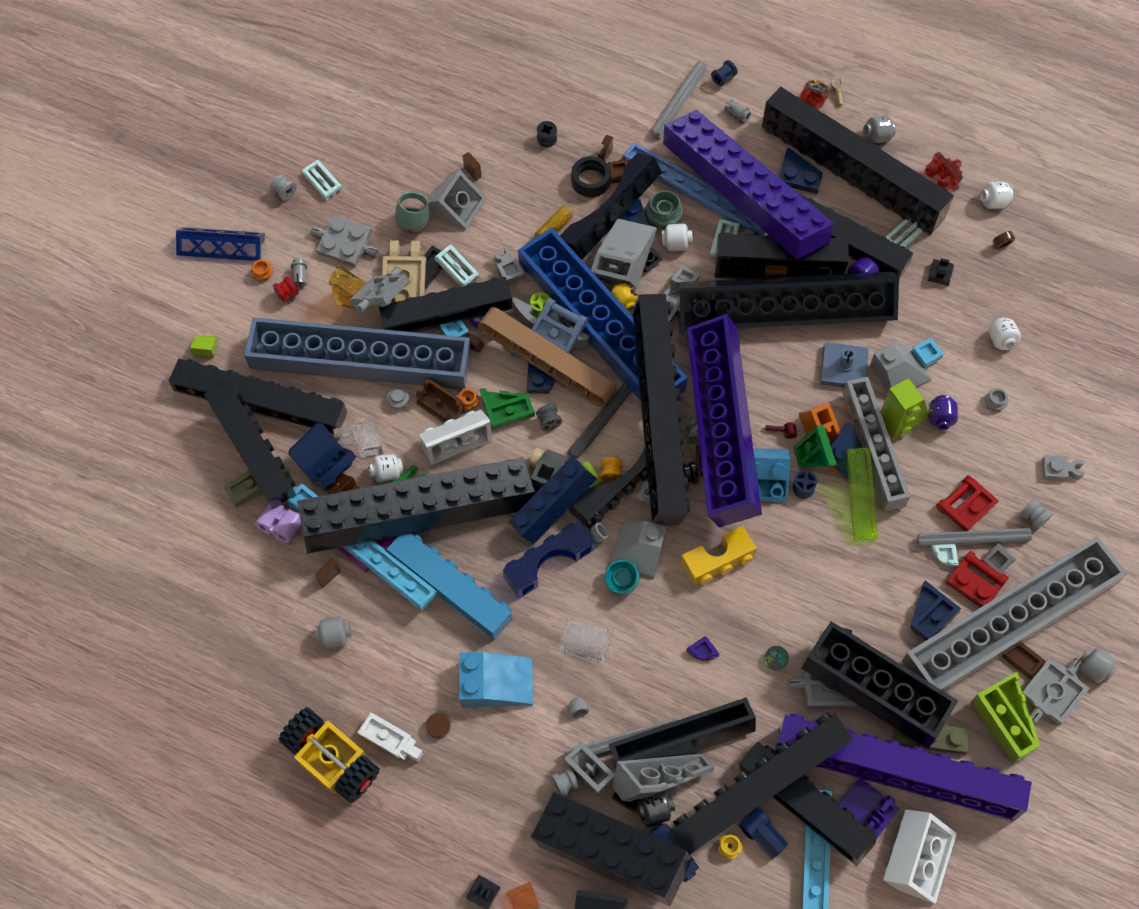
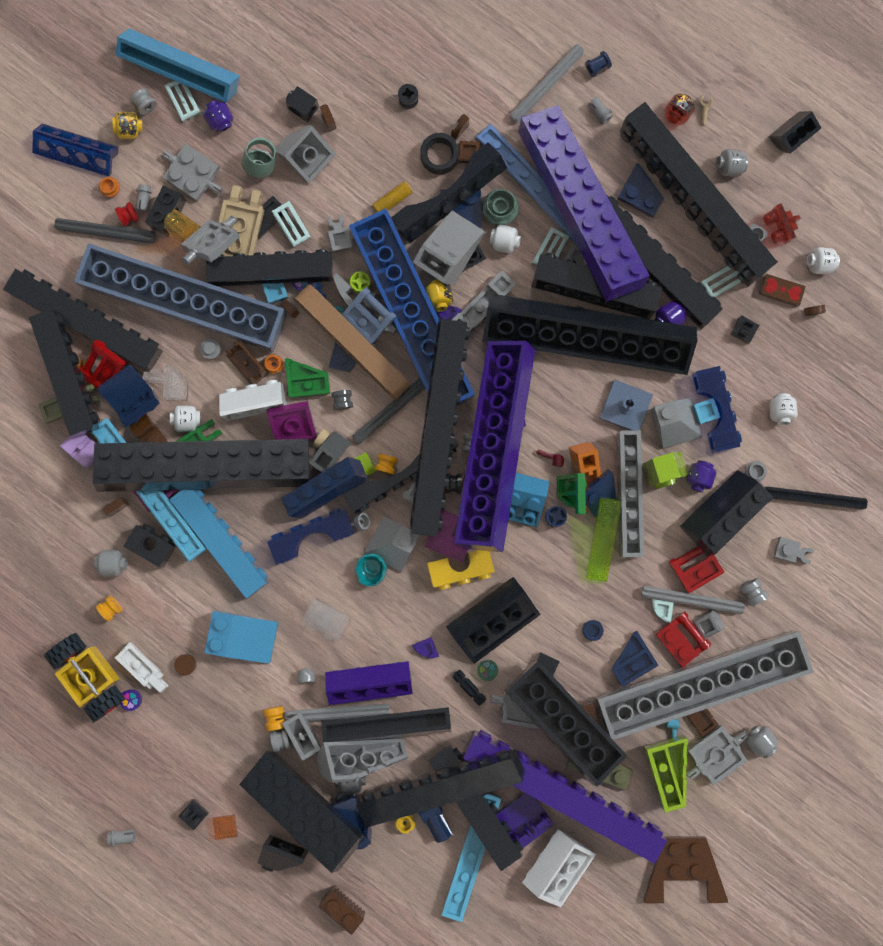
camera: 15 degrees right, 20 degrees up
(204, 346) = (43, 254): lime slope -> none
(265, 310) = (105, 230): none -> dark grey axle
(270, 210) = (126, 125): none -> head
(294, 431) = (108, 367): none -> red plate
(312, 148) = (177, 65): none -> dark azure brick
(319, 286) = (163, 205): none -> black brick
(340, 680) = (109, 608): none -> light orange wheel
(362, 185) = (218, 116): none -> dark purple head
(382, 614) = (138, 544): none -> black brick
(385, 779) = (132, 700): none -> dark purple tile
(443, 159) = (302, 104): none -> black brick
(502, 443) = (292, 421): none -> magenta plate
(552, 759) = (274, 718): none -> light orange wheel
(650, 695) = (368, 683): none -> dark purple brick
(690, 536) = (444, 541): none -> magenta plate
(761, 680) = (467, 685): none -> black axle
(768, 602) = (493, 620): none -> black slope
(774, 271) = (585, 302): reddish brown tile -> none
(878, 592) = (592, 630): none -> dark blue tile
(925, 324) = (711, 384): none -> clear blue arch
(931, 92) = (795, 131): none -> black brick
(965, 230) = (782, 290): none -> reddish brown tile
(980, 441) = (725, 512): none -> black slope
(995, 669) = (674, 725): none -> medium azure hand
(1060, 816) = (685, 860): none -> reddish brown wing
(1066, 411) = (817, 498): none -> black axle

